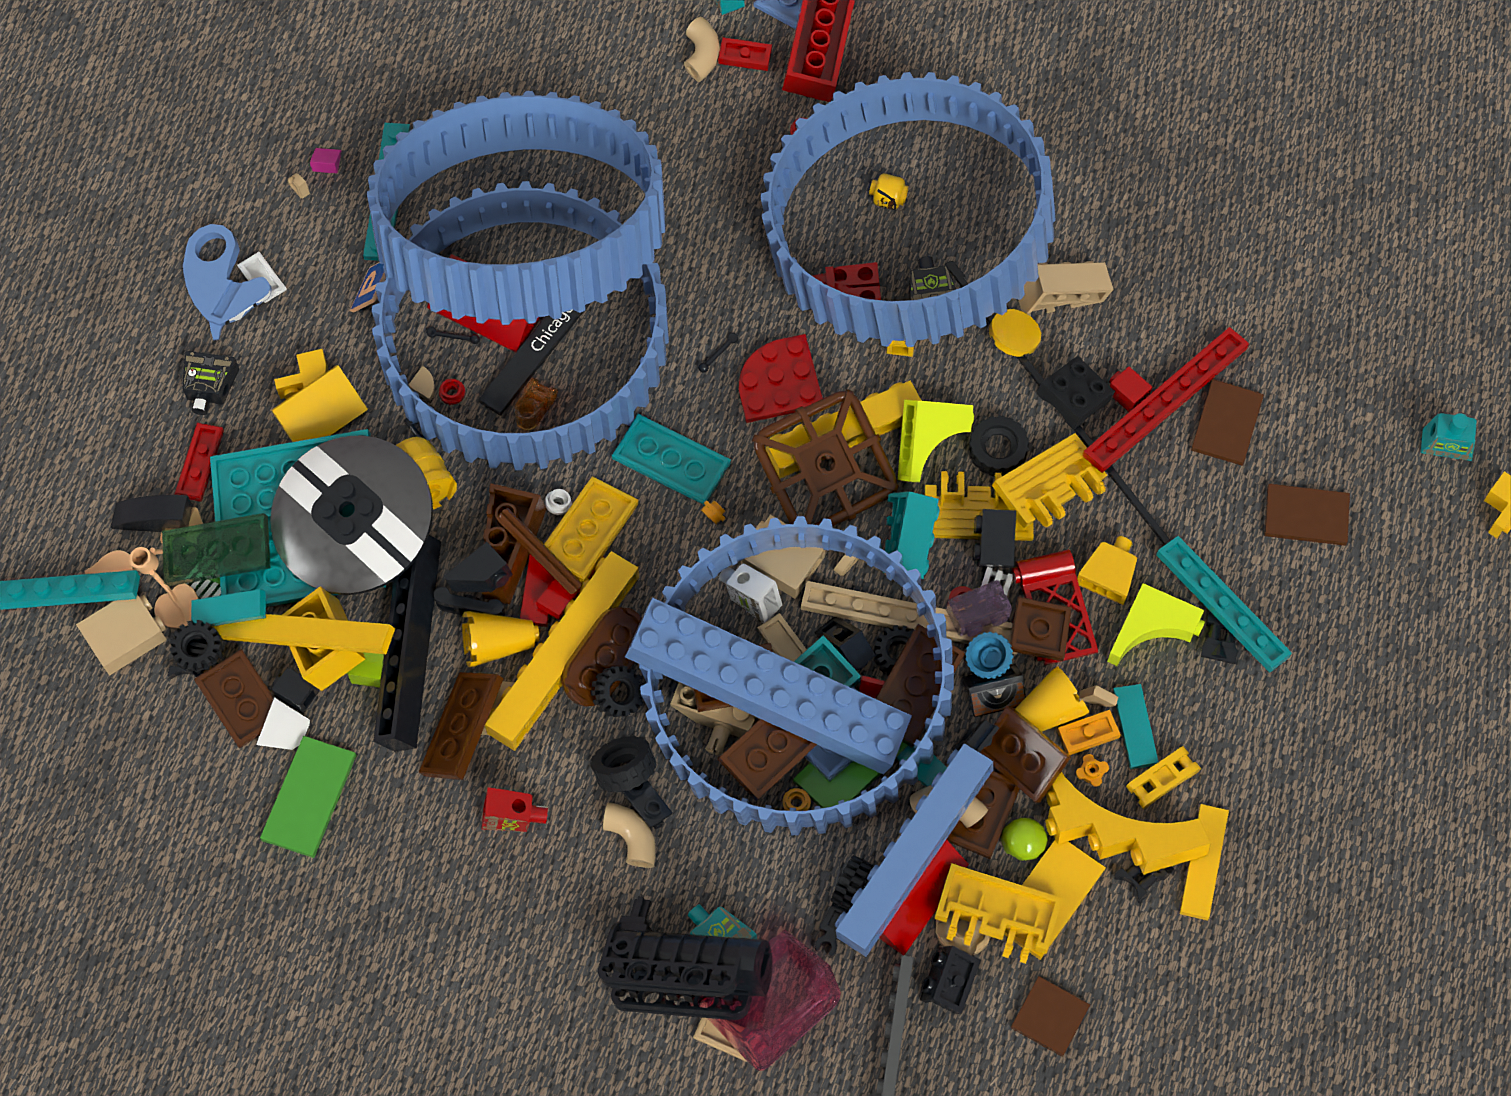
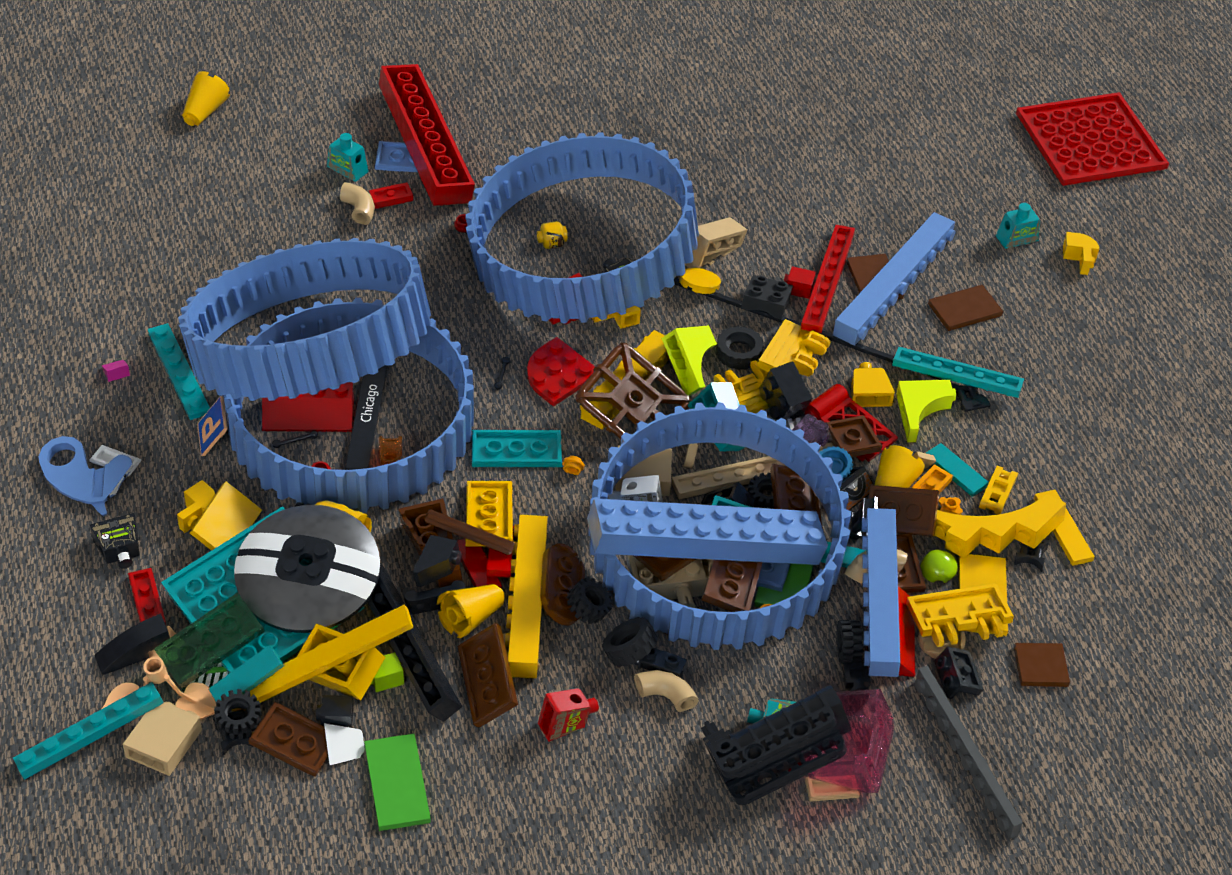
camera: 35 degrees left, 20 degrees down
(299, 185) = (105, 390): tan tile -> none
(561, 496) = (454, 506): white plate -> none
(1246, 436) = (894, 279): none -> medium blue brick

